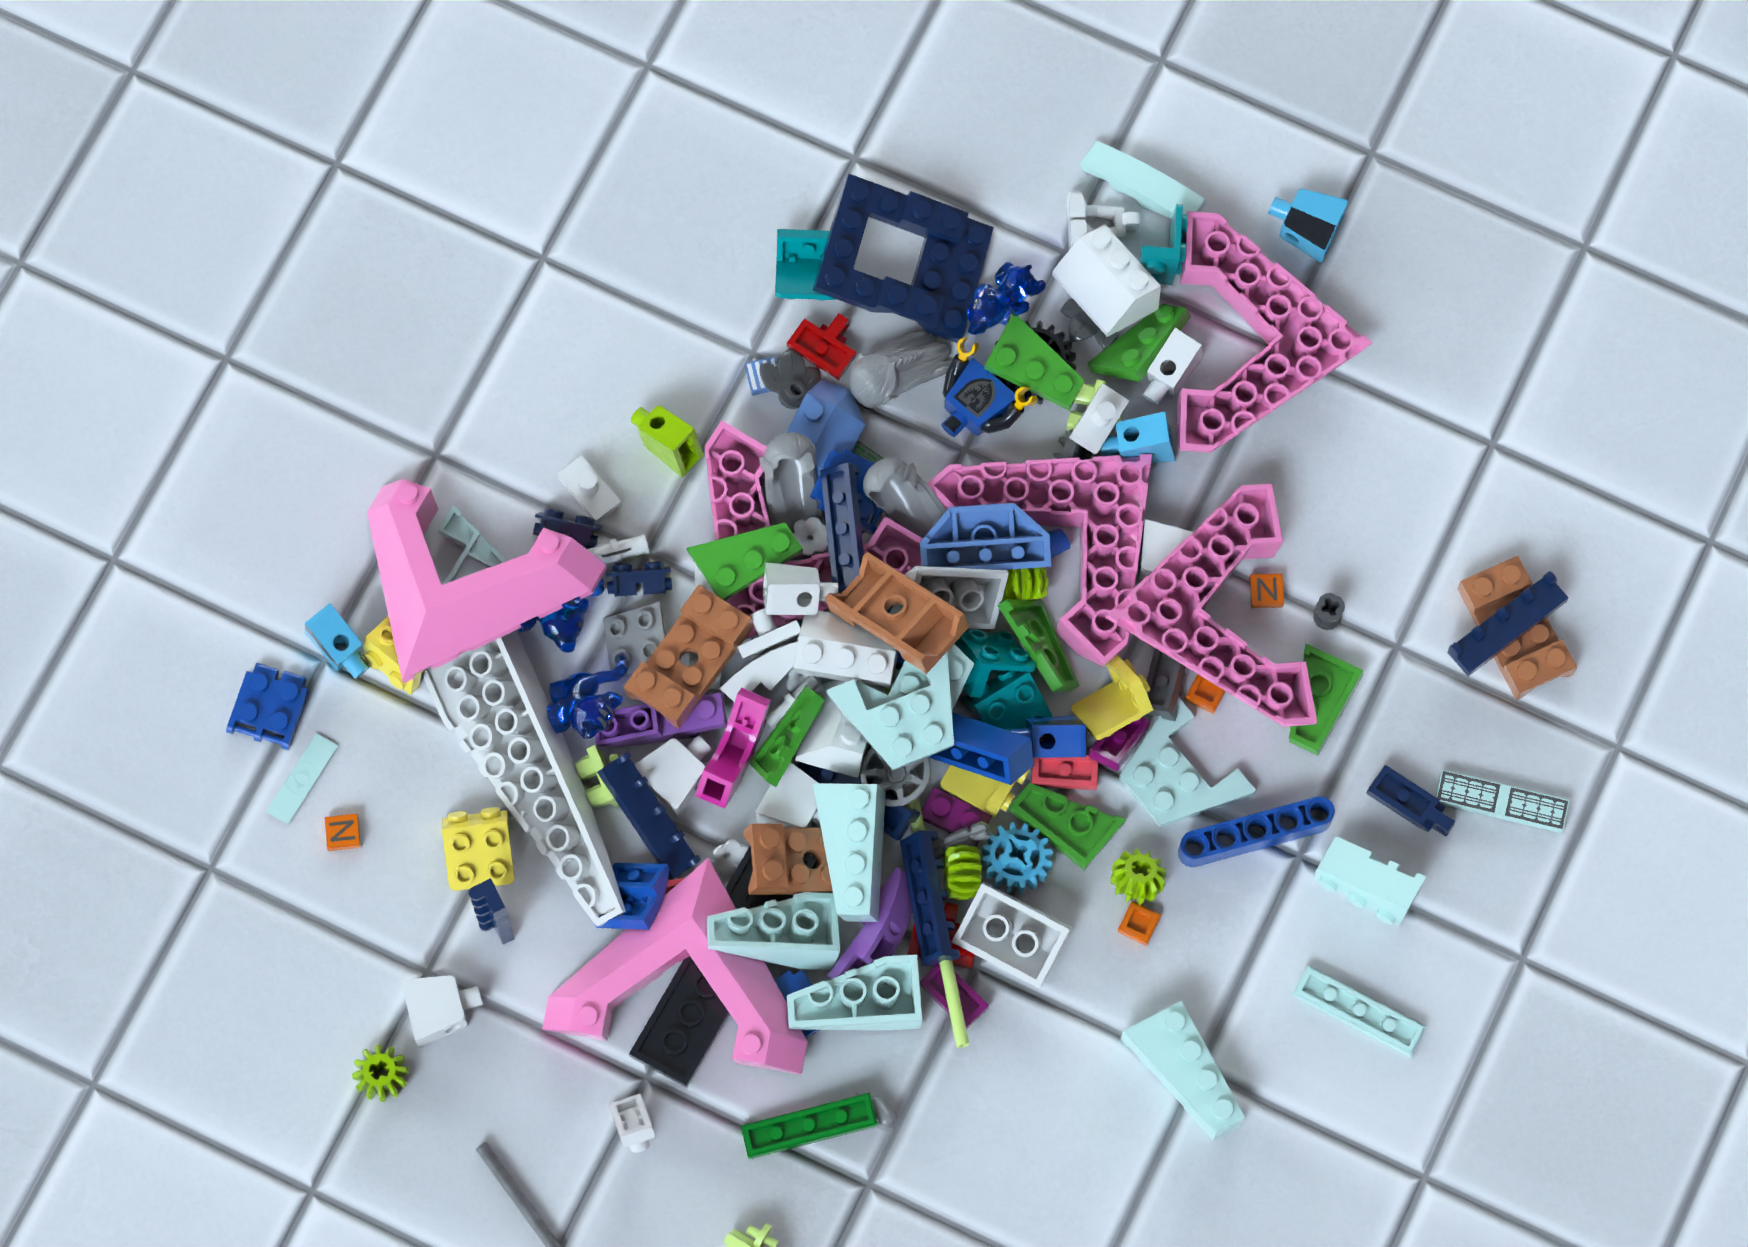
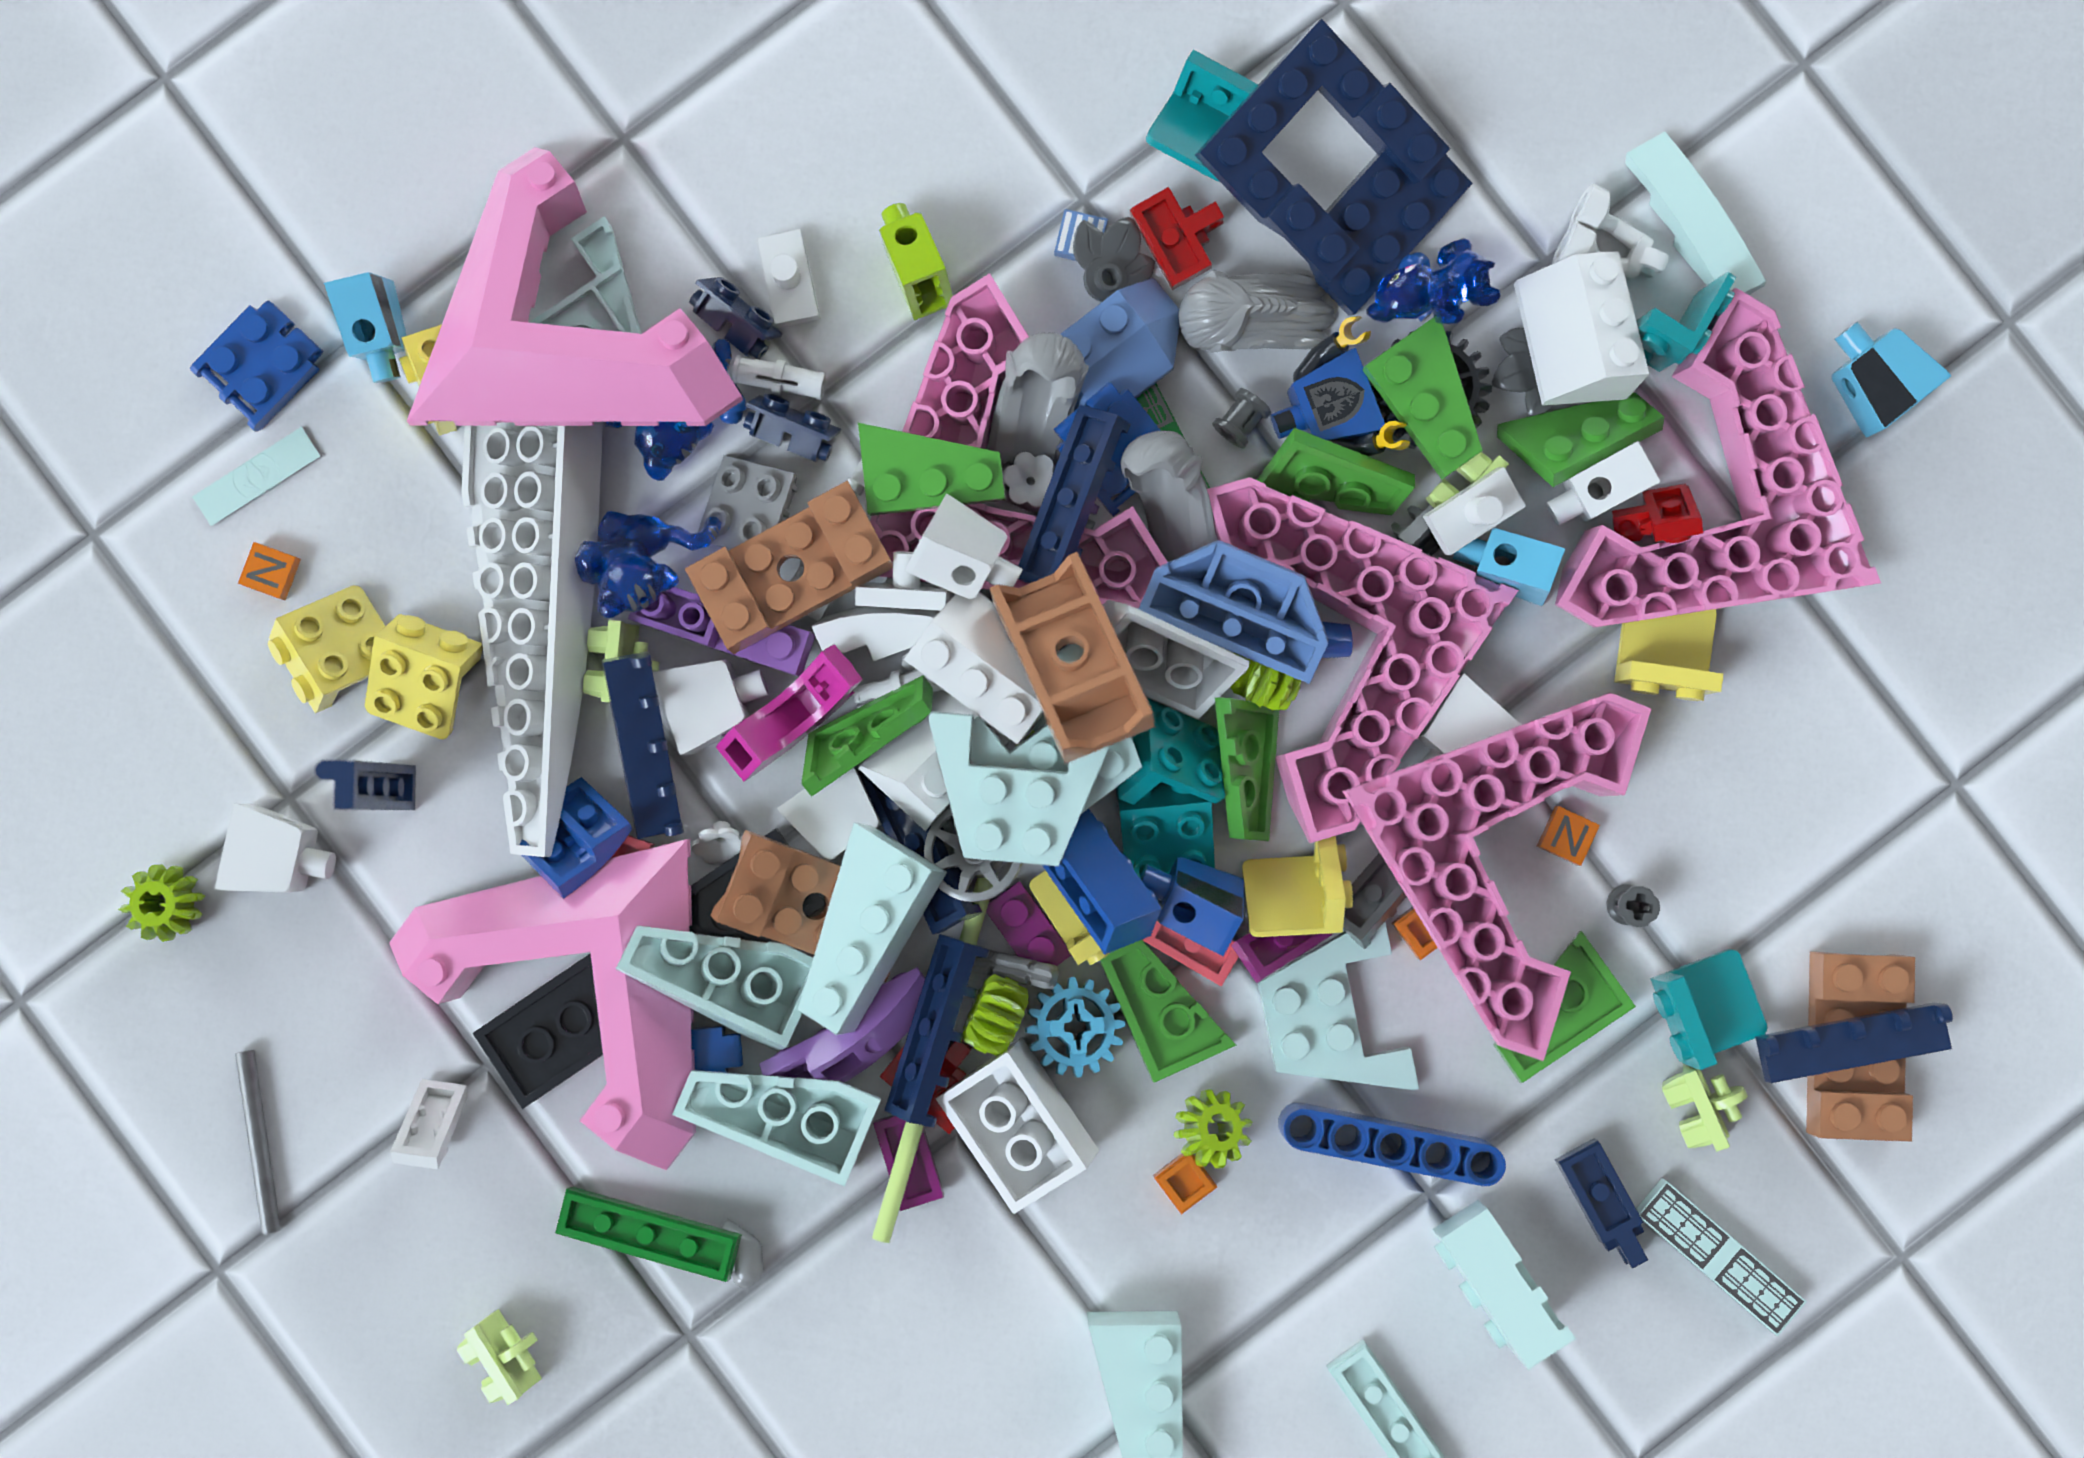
camera: 30 degrees right, 15 degrees up
(407, 859) = (326, 645): none -> light yellow bracket
(924, 435) = (1242, 418): none -> dark grey bush
(1003, 440) = (1332, 473): none -> bright green wing
(1218, 365) = (1666, 513): none -> red hinge
(1268, 448) = (1669, 655): none -> light yellow bracket
(1409, 650) = (1708, 1007): none -> teal bracket
(1425, 704) = (1708, 1126): none -> yellowish green hips

